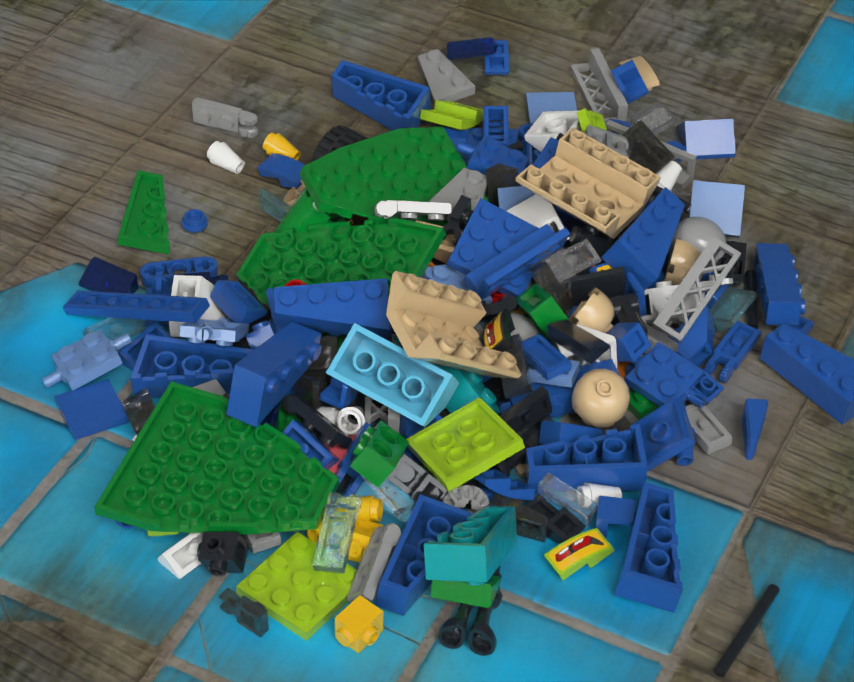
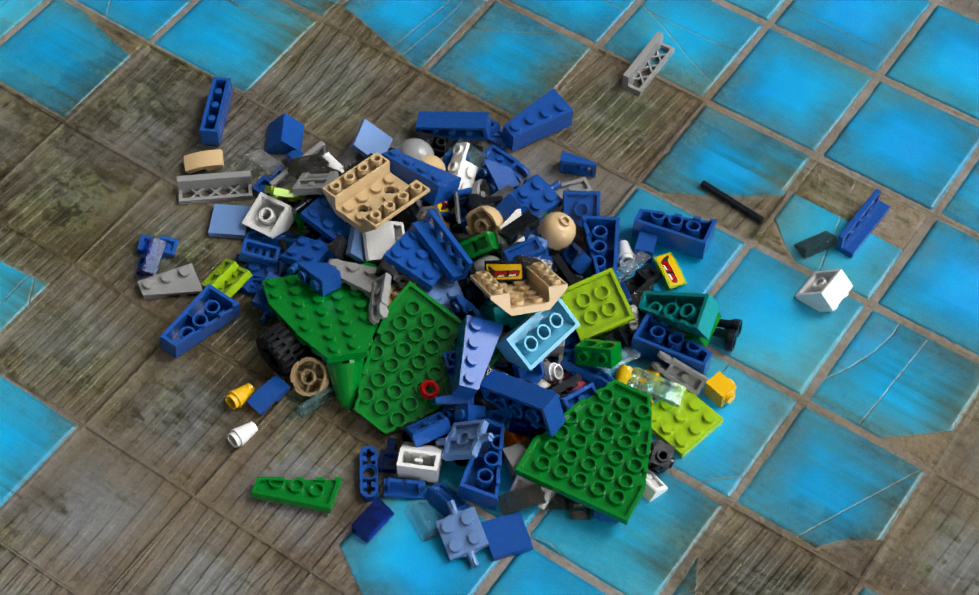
camera: 80 degrees left, 10 degrees up
(137, 306) = (421, 494): blue tile -> none
(194, 221) = (313, 460): blue plate -> none
(224, 117) = (192, 430): light grey hinge -> none
(248, 613) = (708, 447): clear smoke plate -> none
(442, 161) = (319, 276): none -> blue slope
(630, 81) = (221, 164): blue panel -> none
(687, 286) = (471, 163): light grey fence -> none
(720, 68) = (216, 111): none -> blue brick

